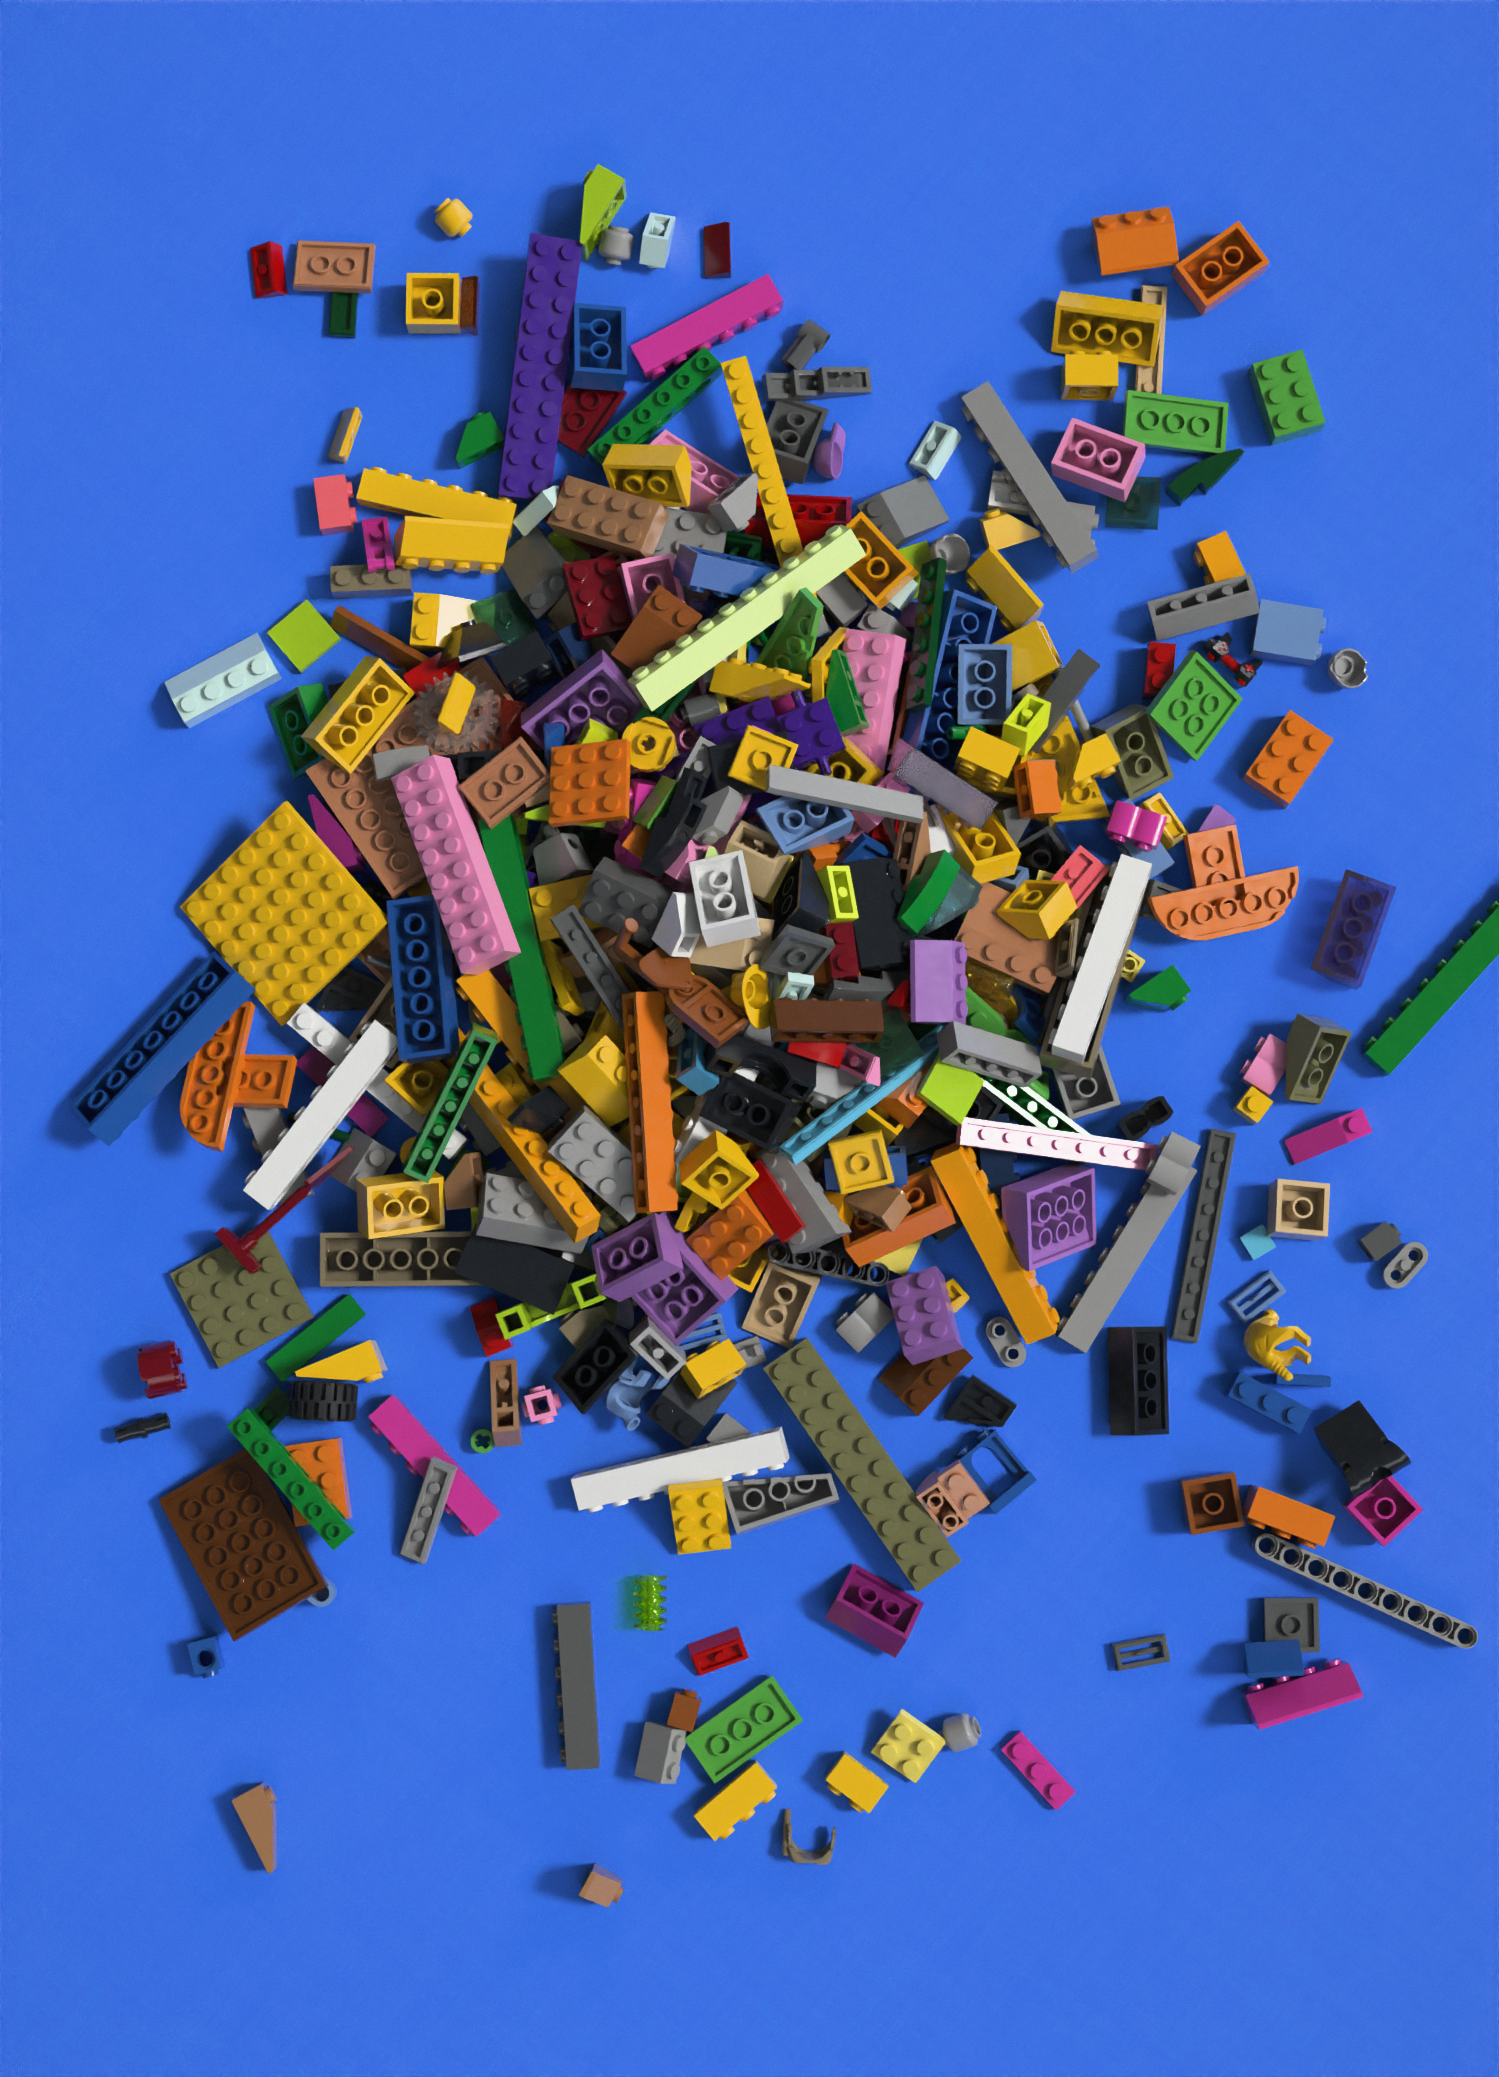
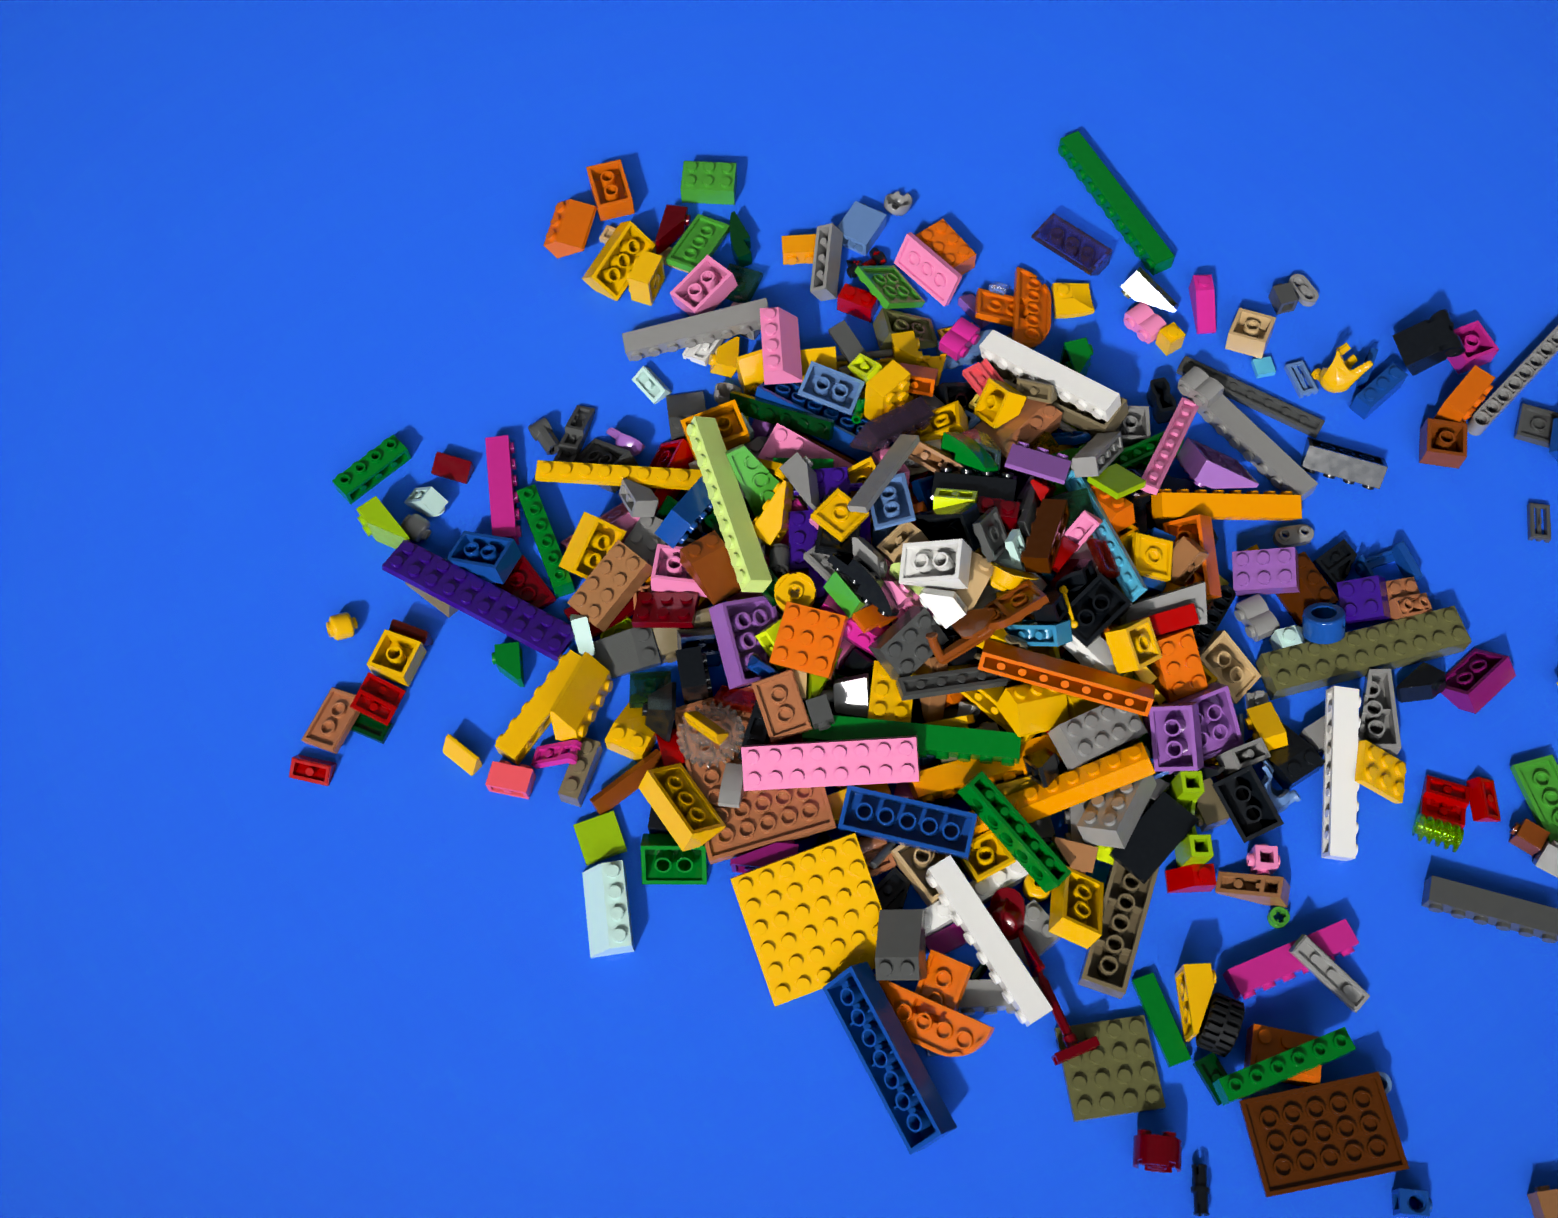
camera: 70 degrees left, 20 degrees down
(281, 1020) = (901, 945): none -> dark grey slope
(367, 1128) = (1008, 911): none -> dark red piece
(374, 305) = (377, 699): none -> red slope
(508, 830) = (820, 712): none -> dark grey brick
(678, 151) = (371, 469): none -> green brick
(697, 1604) = (1444, 800): none -> red slope
(757, 1064) = (1063, 589): none -> yellow hinge
(799, 699) = (803, 478): none -> light grey slope
(825, 1100) = (1103, 558): none -> clear red tile
(841, 1544) = (1421, 684): none -> black slope
(850, 1376) = (1287, 637): none -> light aqua slope
(862, 1414) = (1323, 623): none -> blue piece
(927, 1446) = (1364, 599): none -> dark purple brick
(1022, 596) = (780, 346): none -> bright pink slope
(1190, 376) = (672, 226): none -> dark red slope
(1243, 746) = (927, 269): none -> bright pink plate
(1250, 853) = (999, 288): none -> clear tile
(1274, 957) = (1071, 300): none -> yellow plate

